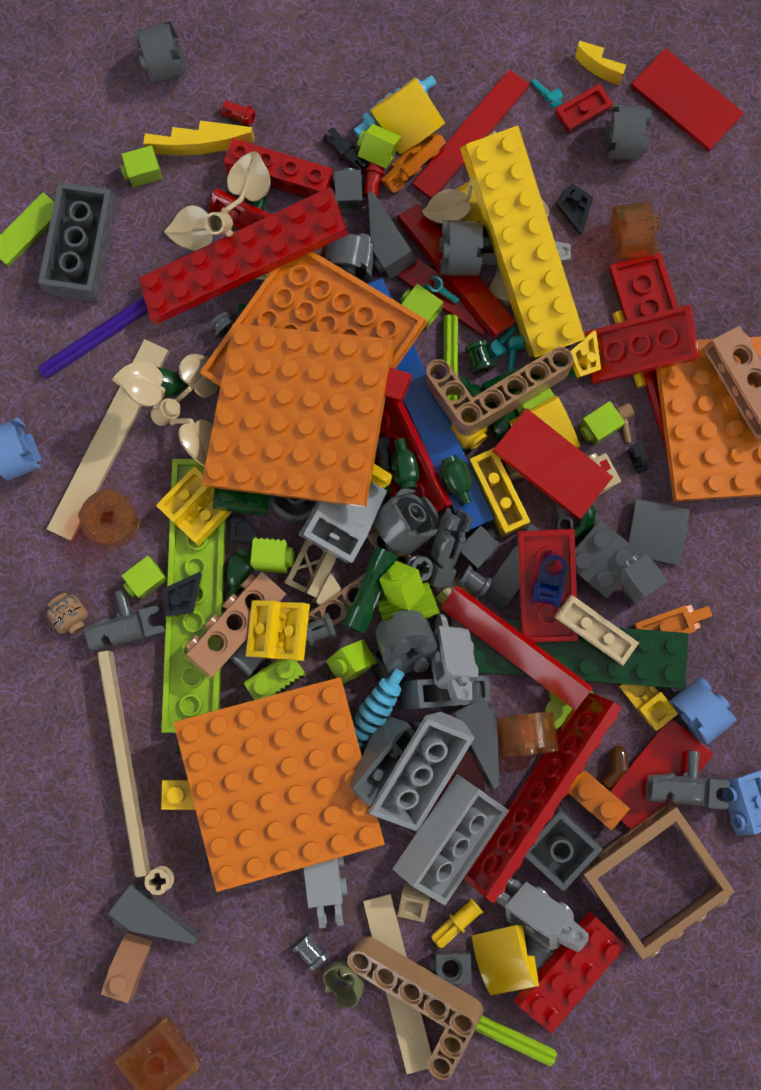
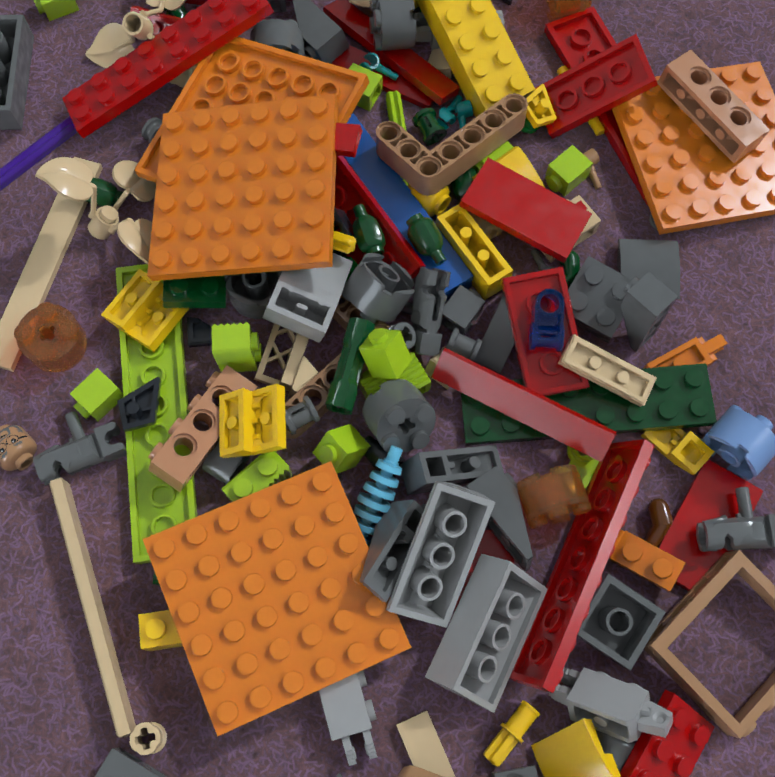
camera: 10 degrees left, 10 degrees down
(238, 571) = (200, 370): dark green plant -> none
(413, 904) = (456, 718): tan slope -> none
(454, 660) = (456, 428): light grey hinge -> none
(638, 457) = (612, 198): black tile -> none

